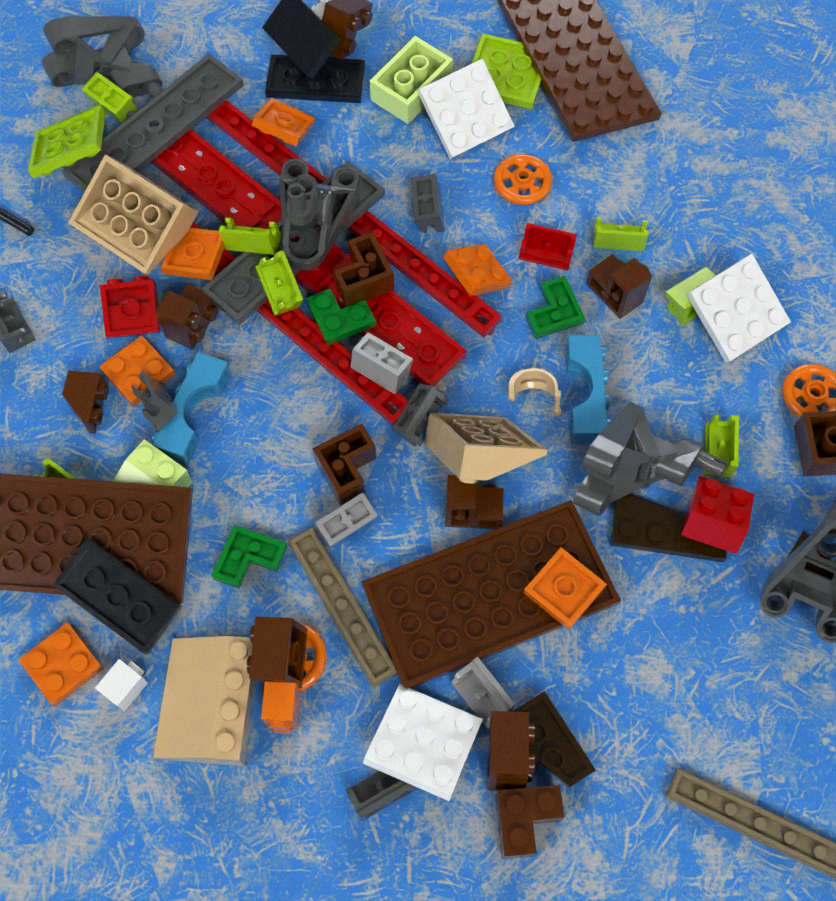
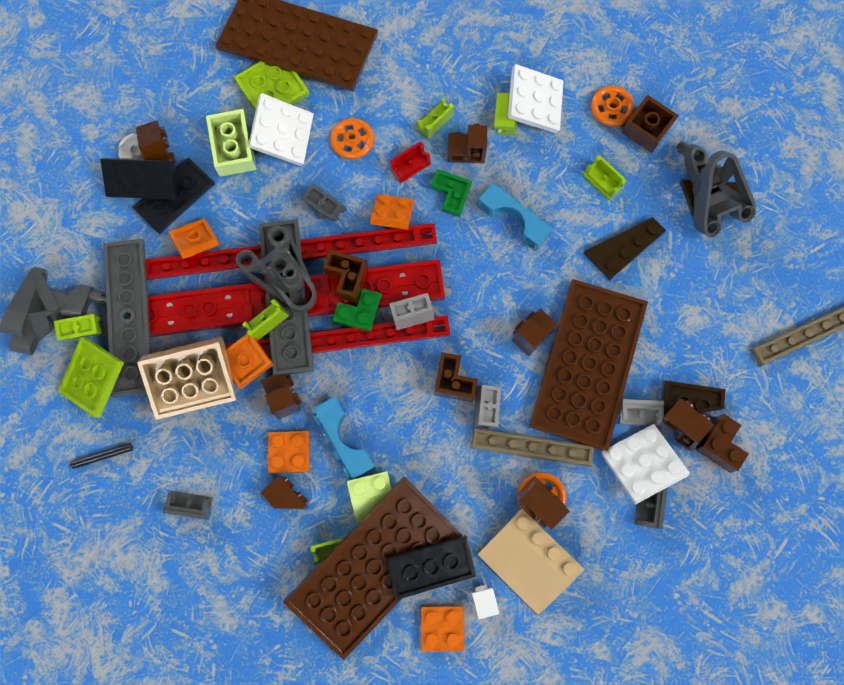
camera: 50 degrees left, 10 degrees up
(129, 307) = (244, 425): red plate -> none
(157, 401) = (325, 456): dark grey hinge -> none
(246, 548) = (456, 476): green plate -> none
(279, 283) = (312, 328): lime hinge -> none
(281, 706) = (573, 525): orange brick -> none
(416, 412) = (455, 316): dark grey hinge -> none
(479, 445) = (511, 299): tan slope -> none
(535, 379) = (488, 235): tan helmet -> none
(565, 588) = (622, 324): orange plate -> none
(621, 468) = (579, 236): dark grey connector -> none
(718, 514) = (644, 213): red brick -> none

